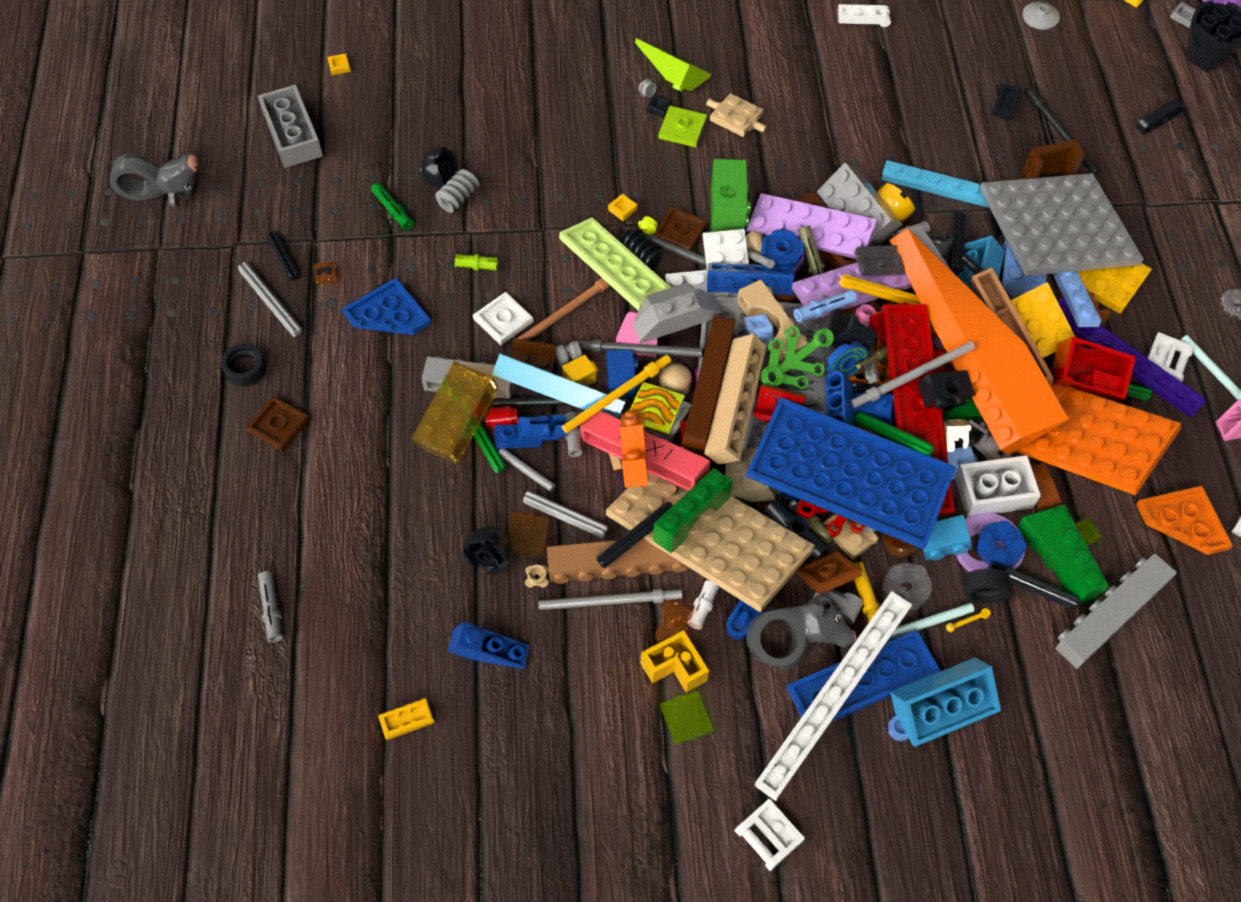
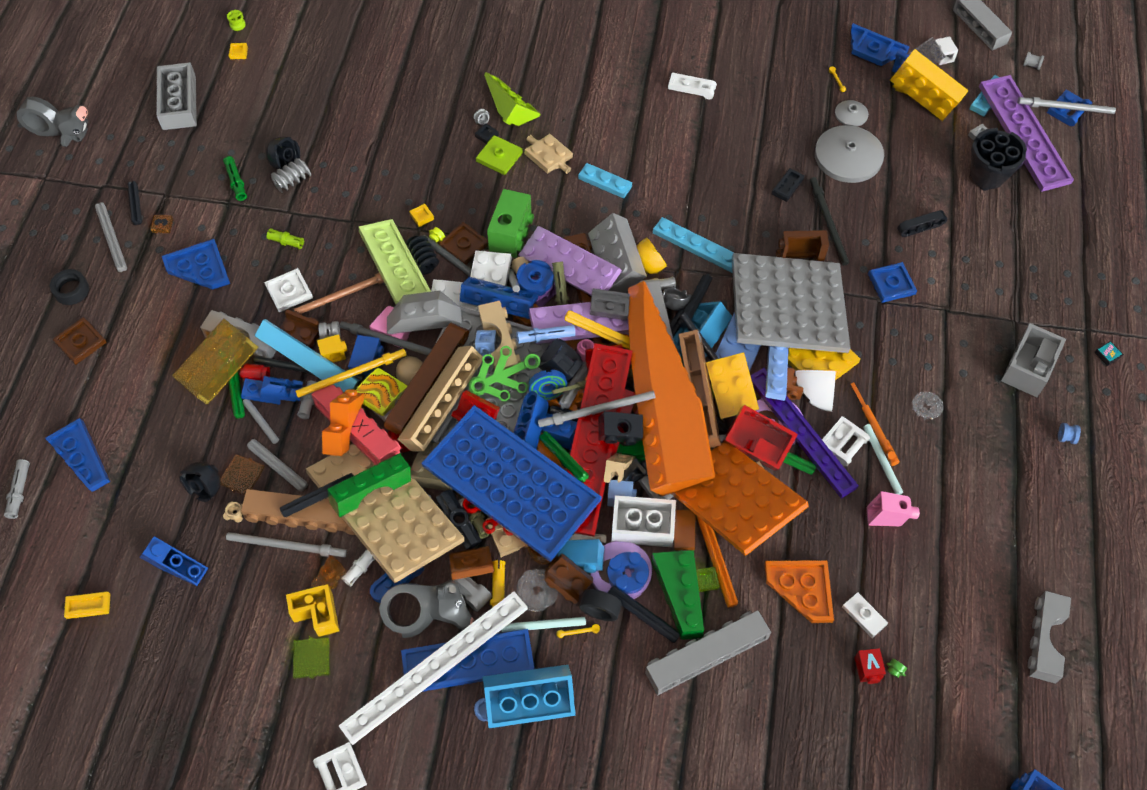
camera: 15 degrees right, 0 degrees up
(324, 30) = (236, 20): none -> lime wheel
(327, 548) = (80, 454): none -> blue wing
(809, 132) = (605, 180): none -> medium azure plate
(941, 564) = (567, 578): none -> reddish brown bracket
(1055, 58) = (849, 154): none -> light grey dish
(1085, 510) = (719, 564): none -> orange axle
(1124, 307) = (817, 387): none -> white brick
(1153, 183) = (892, 282): none -> blue plate
(1222, 362) = (885, 444): none -> orange piece

